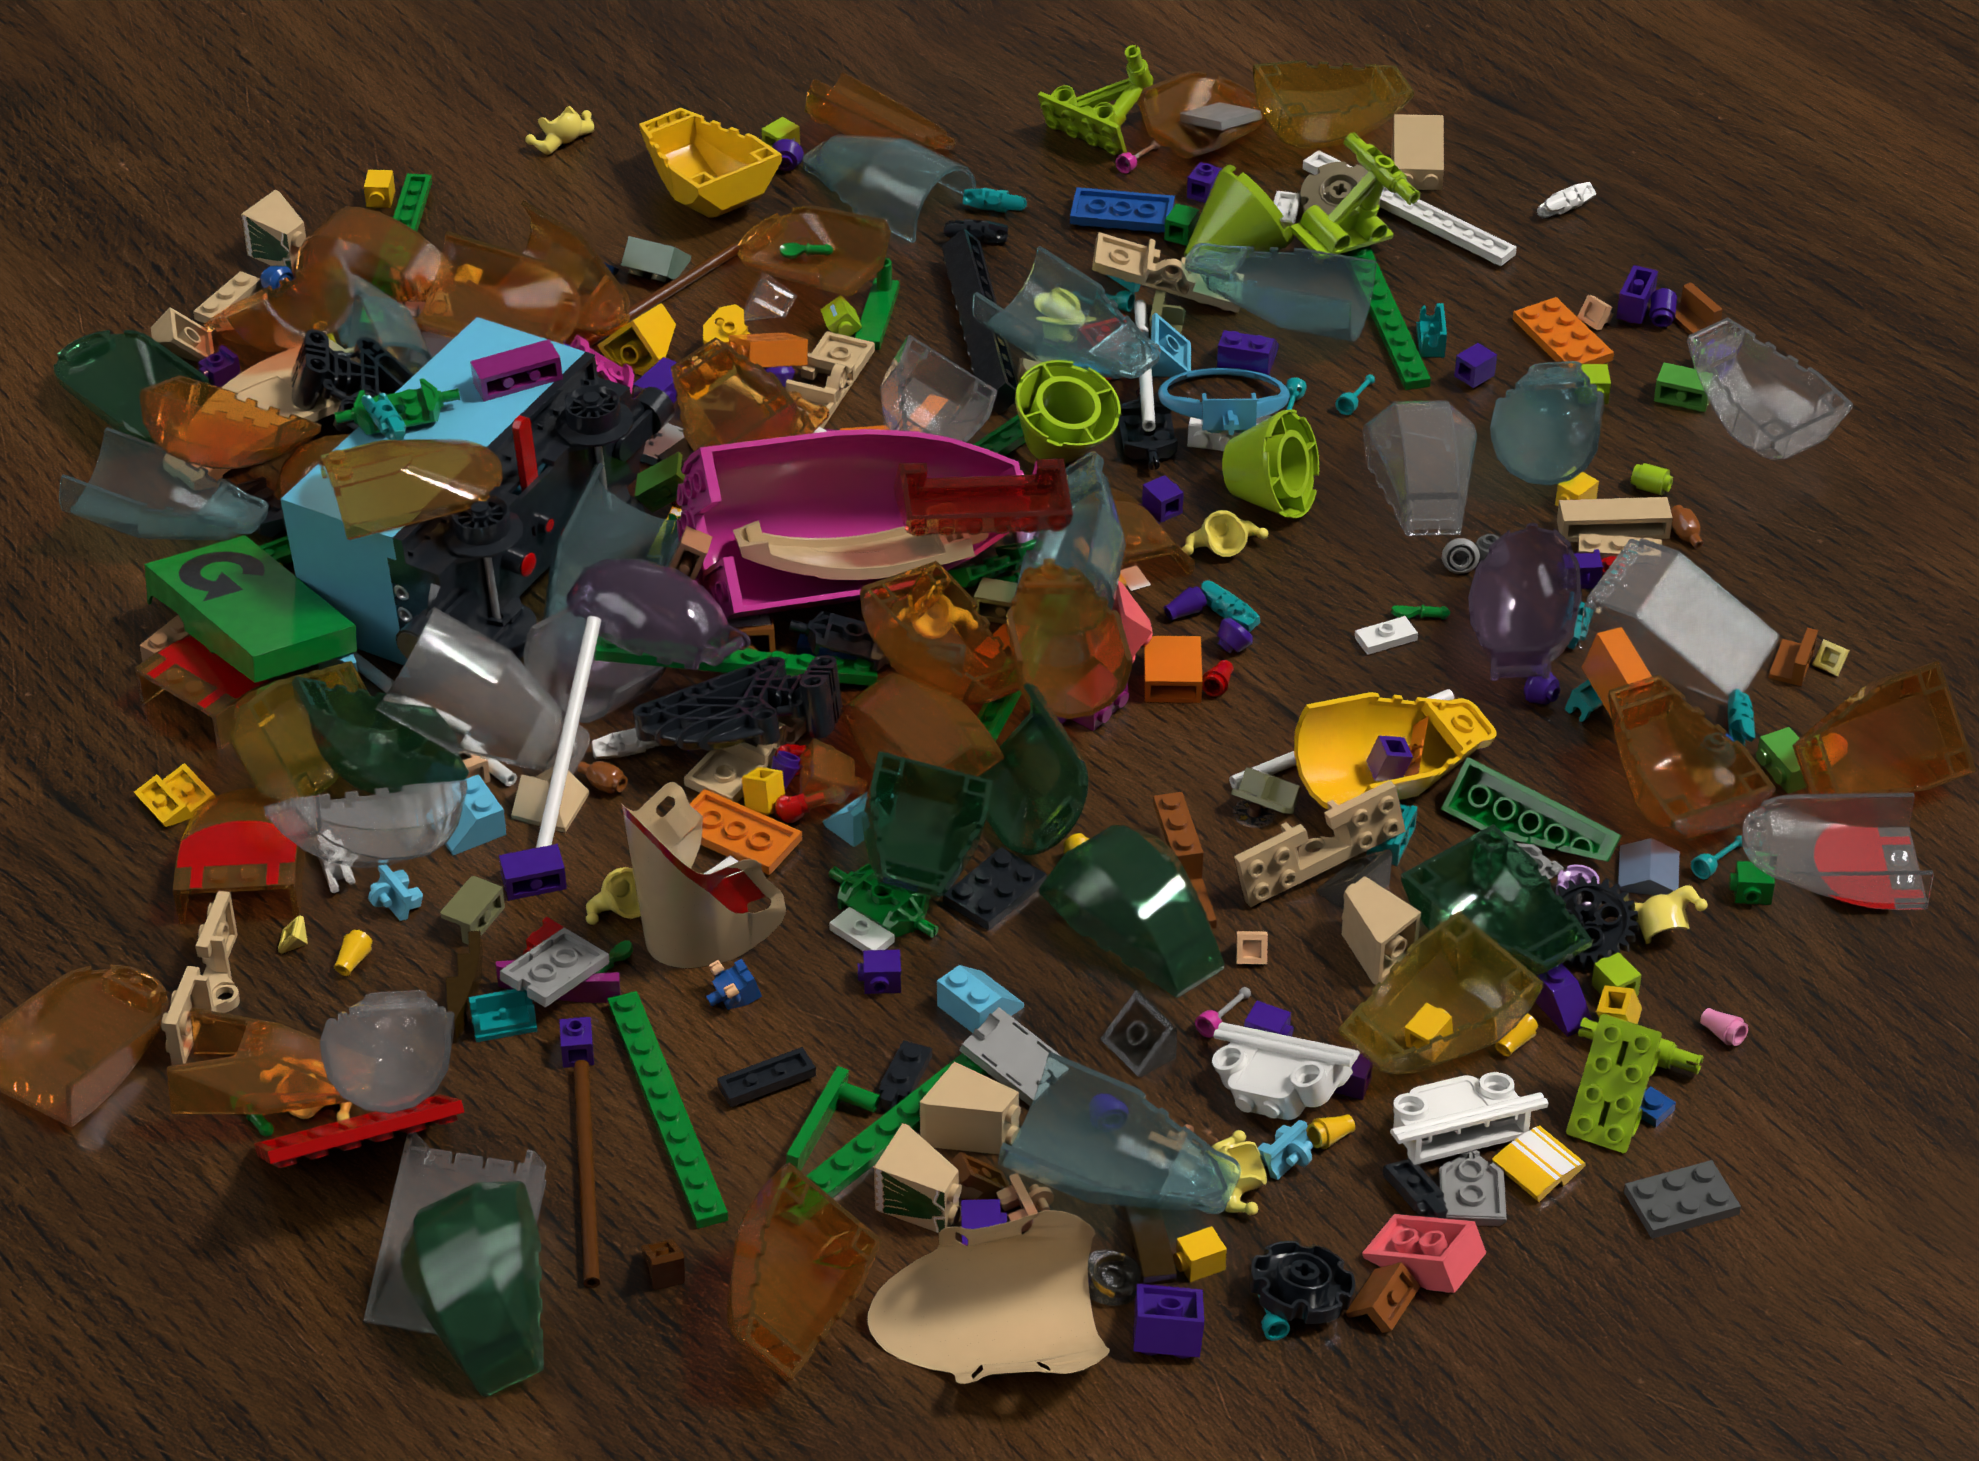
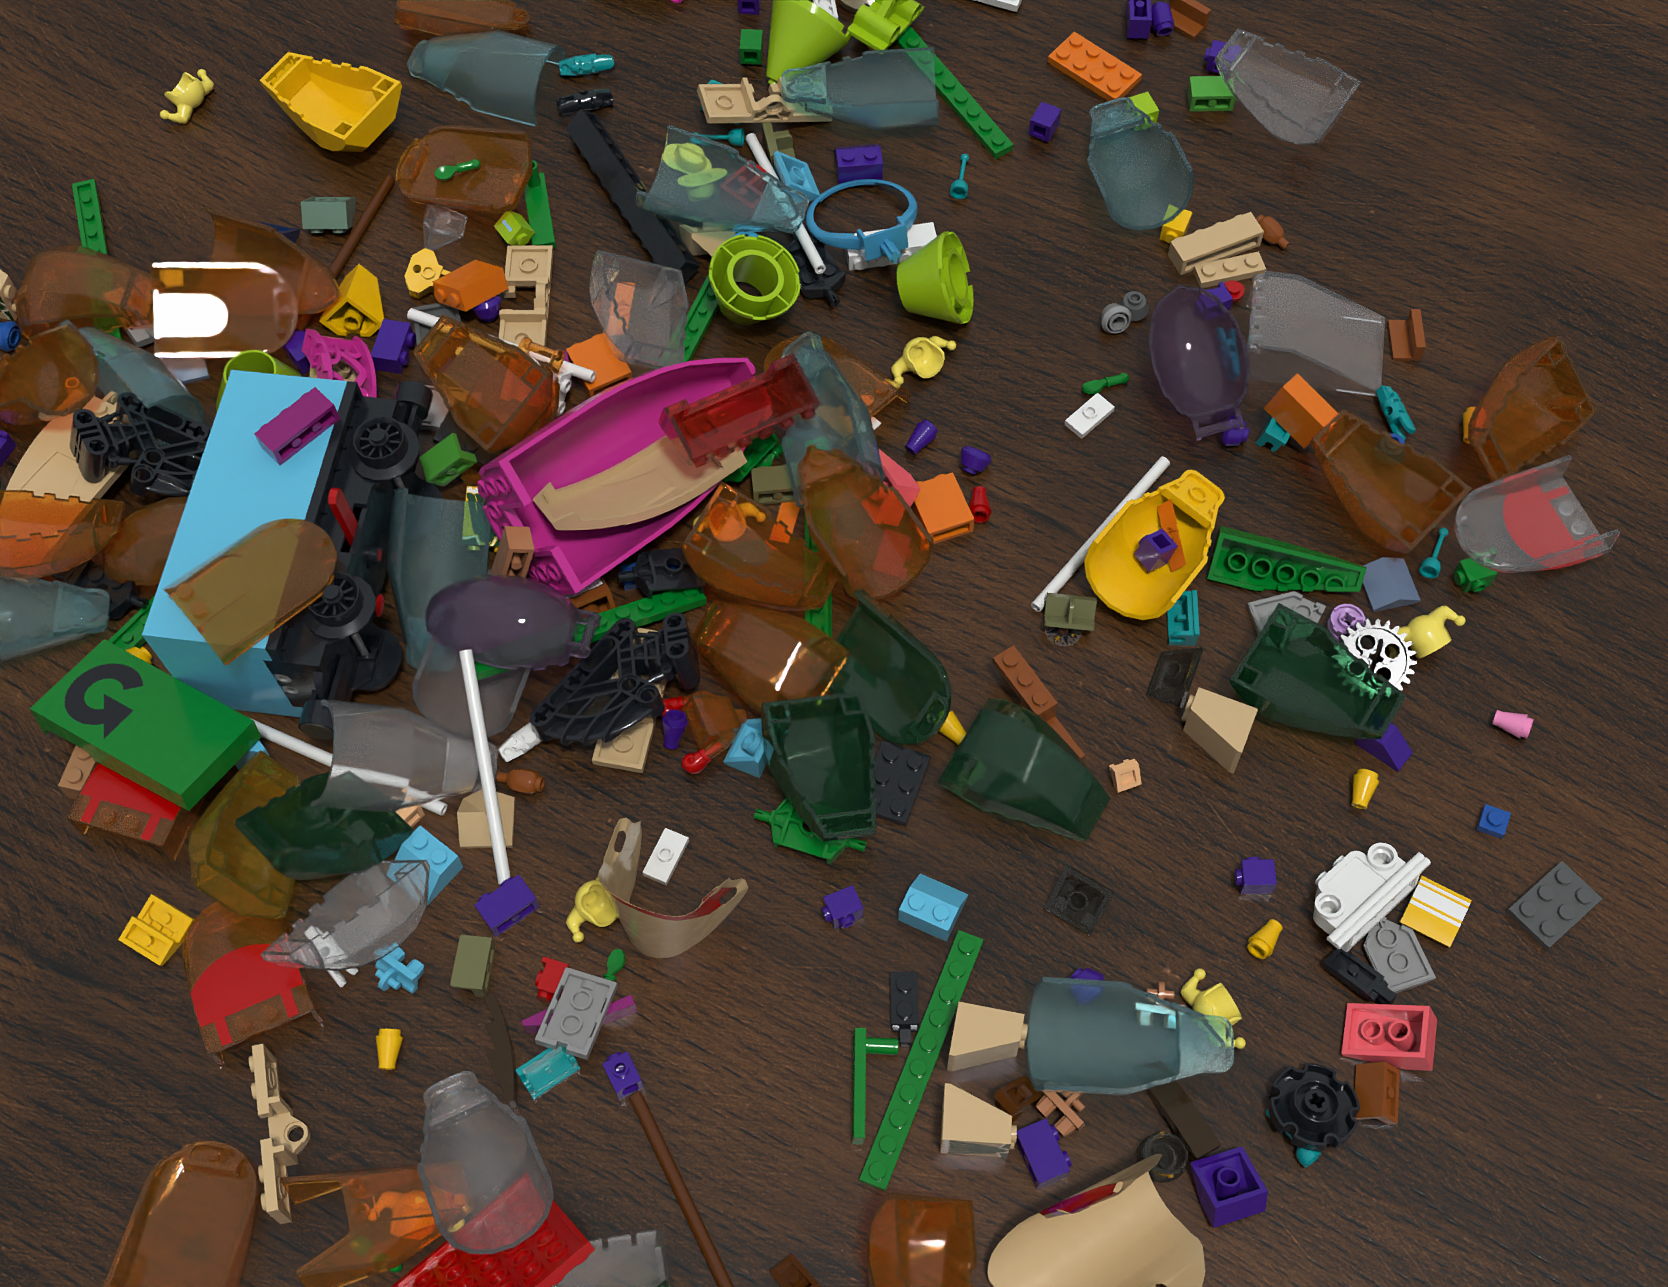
camera: 20 degrees left, 20 degrees up
(293, 935) = (327, 1047): light yellow slope -> none
(379, 188) = (54, 206): yellow brick -> none
(385, 416) = (205, 523): teal hinge -> none
(416, 405) = (188, 512): green plate -> none
(667, 1110) = (727, 1115): green plate -> none
(733, 986) = (727, 967): blue piece -> none
(744, 832) = (659, 800): orange plate -> none
(762, 789) = (666, 753): yellow brick -> none
(766, 1077) = (795, 1052): black plate -> none
(780, 130) = (379, 50): lime brick -> none
(791, 154) = (393, 66): dark purple cone -> none
(861, 931) = (806, 868): white plate -> none
(1008, 1053) = (990, 957): light grey piece -> none
(1121, 209) = (694, 43): blue plate -> none
(1162, 498) = (856, 334): dark purple brick -> none
(1200, 1254) = (1221, 1106): yellow brick -> none
(1214, 1017) = (1125, 862): dark pink hinge -> none
(1229, 605) = (958, 429): teal hinge -> none
(1269, 1019) = (1176, 855): dark purple brick -> none
(1279, 1072) = (1208, 903): white brick -> none
(1290, 1148) = (1247, 972): medium azure hips -> none
(1292, 385) = (914, 187): teal hinge -> none
(1356, 826) = (1132, 673): tan plate -> none
(1423, 463) = (1048, 234): clear windscreen -> none
(1426, 1025) = (1307, 818): yellow brick -> none
(1432, 332) = (994, 96): teal hinge -> none
(1452, 970) = (1309, 791): clear yellow windscreen -> none
(1595, 312) = (1111, 39): light nougat tile -> none
(1615, 972) = (1416, 707): lime brick -> none
(1617, 1078) = (1474, 809): lime plate -> none
(1620, 1003) = (1435, 740): yellow brick -> none
(1651, 478) = (1226, 193): lime brick -> none
(1778, 757) = (1446, 442): bright green brick -> none
(1830, 657) = (1435, 328): light yellow slope -> none

